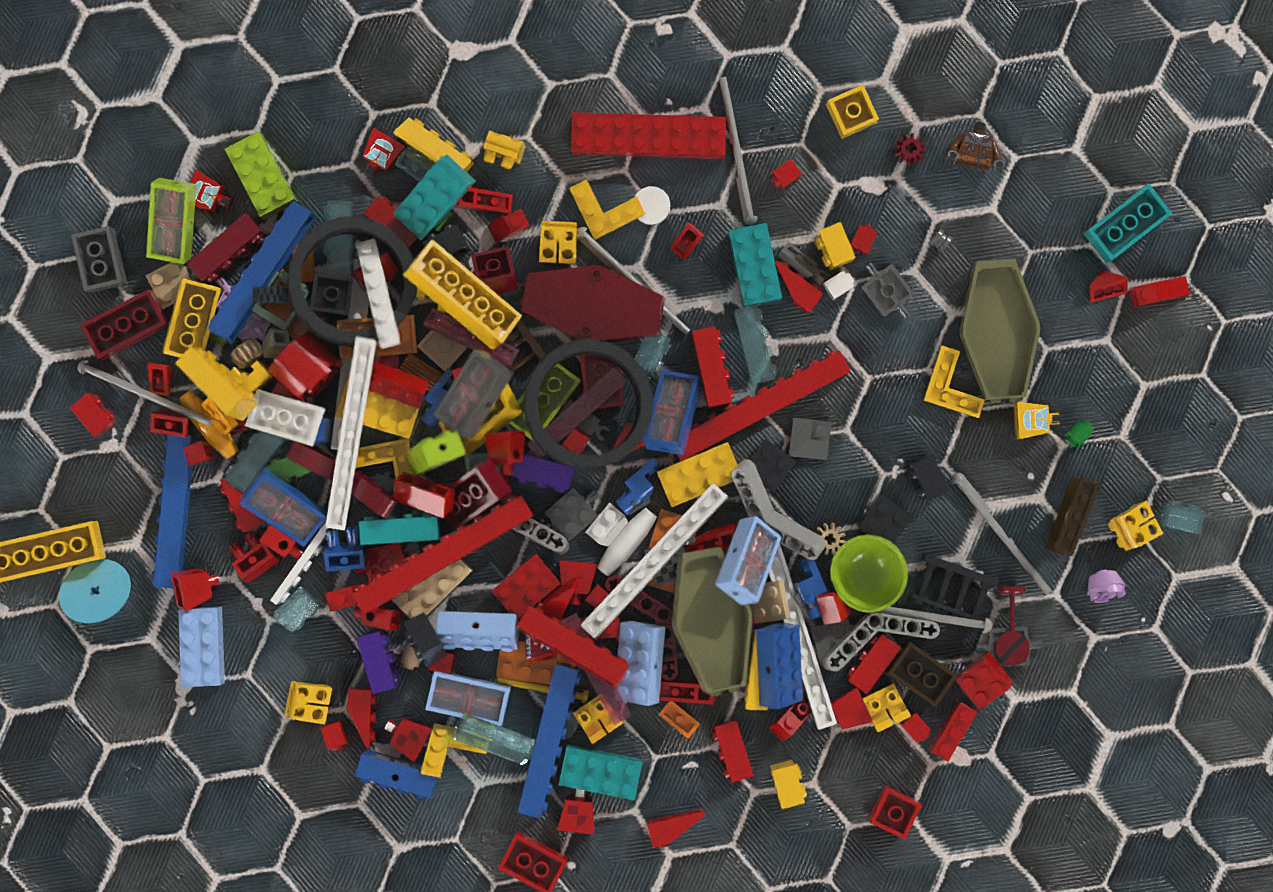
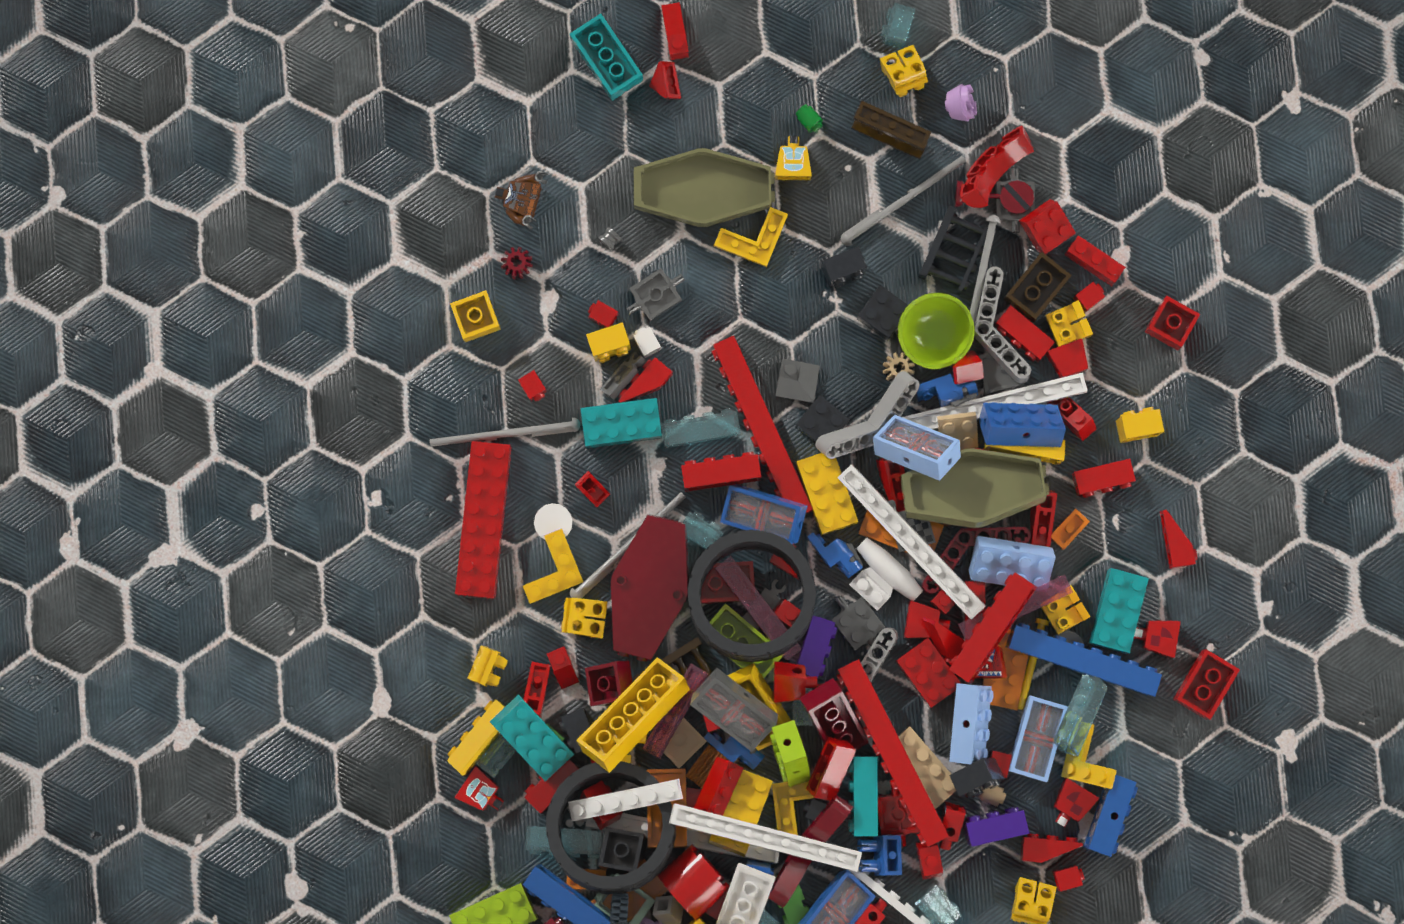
camera: 85 degrees left, 5 degrees down
(1043, 621) = (992, 165): none -> red brick

